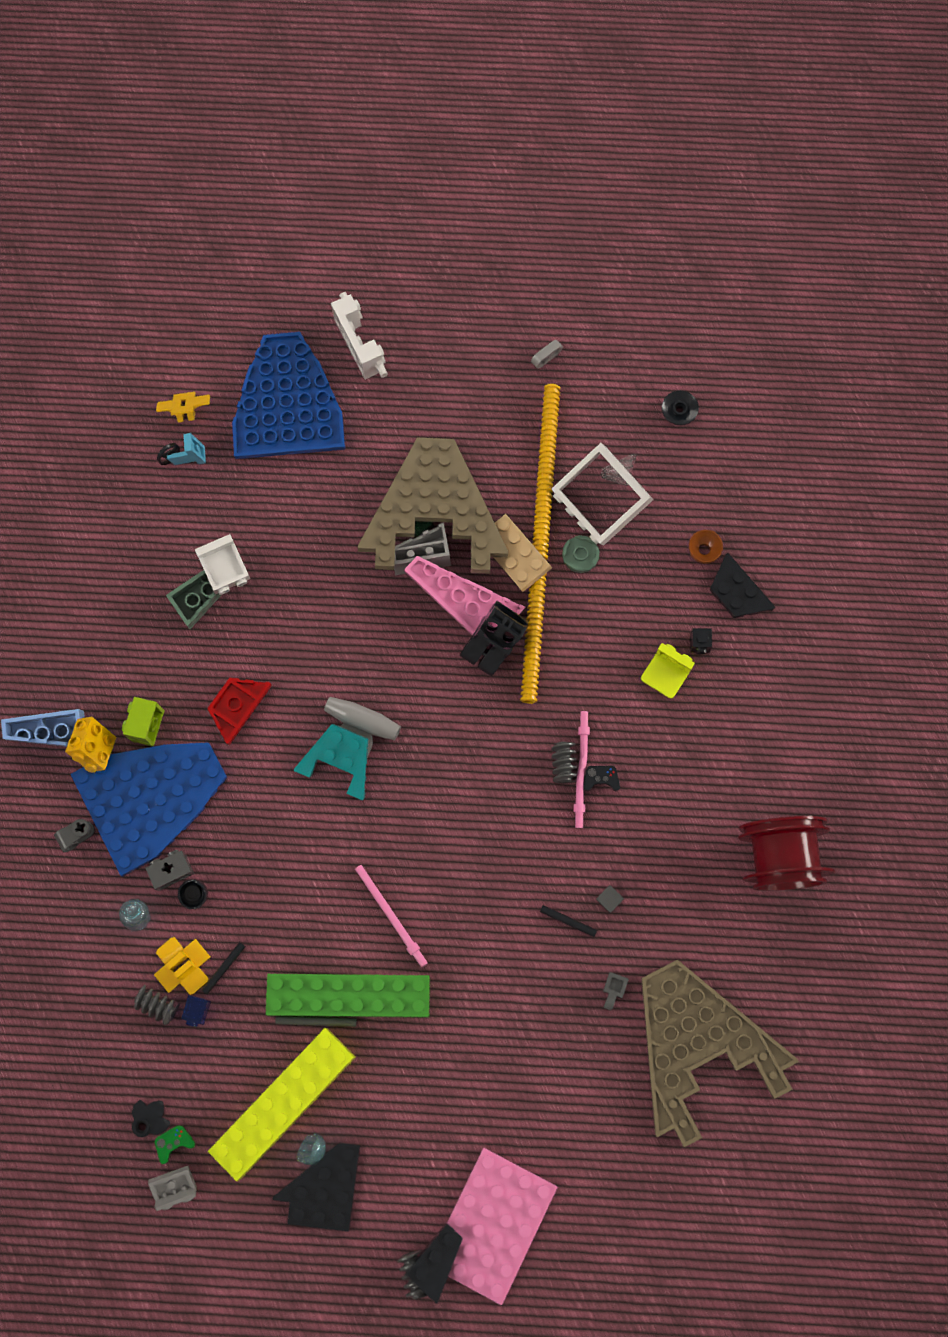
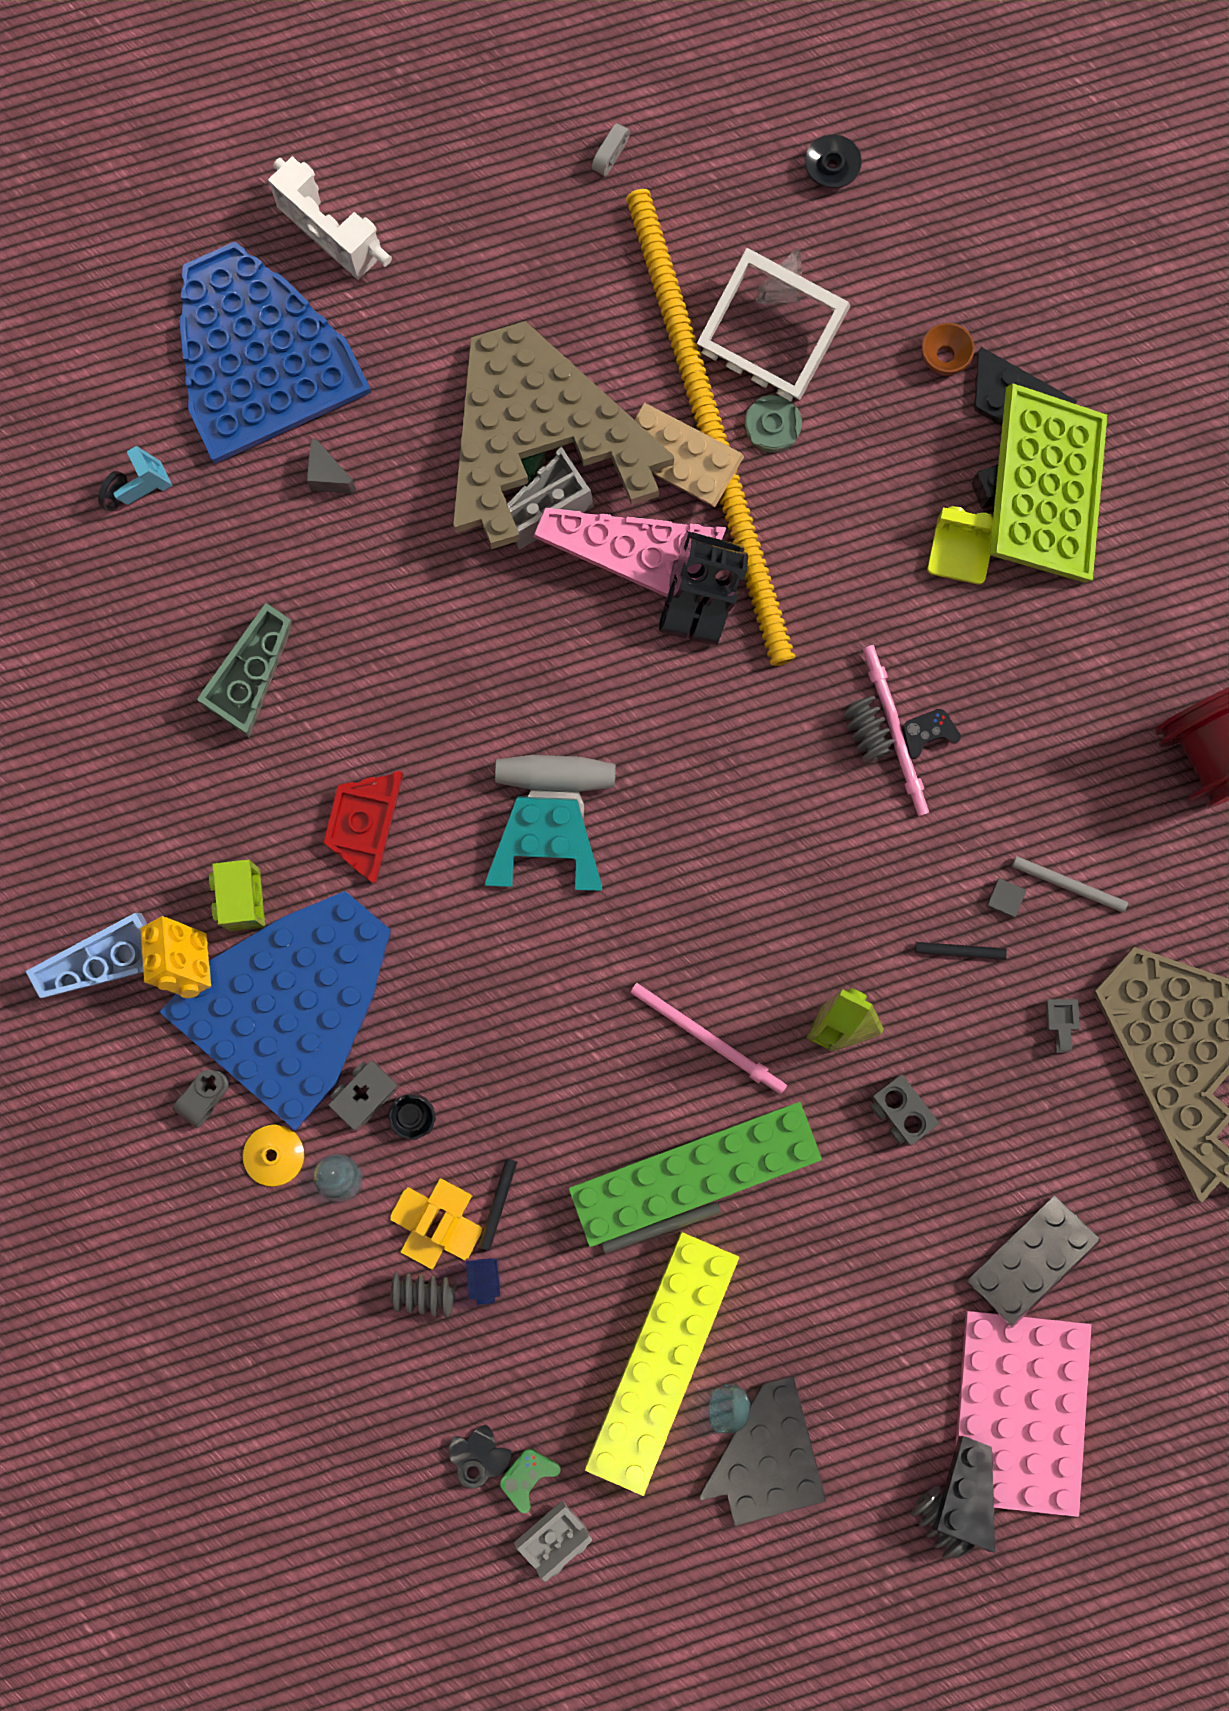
camera: 25 degrees left, 5 degrees up
(110, 891) = (289, 1155): none -> yellow dish
(176, 407) = (95, 417): yellow piece -> none
(222, 564) = (264, 623): white panel -> none
(297, 487) = (326, 473): none -> dark grey slope
(471, 937) = (845, 1021): none -> lime wedge
(497, 1005) = (909, 1105): none -> dark grey brick
(536, 1132) = (1033, 1261): none -> plate
(653, 905) = (1070, 884): none -> light grey bar
(734, 652) = (1048, 484): none -> lime plate

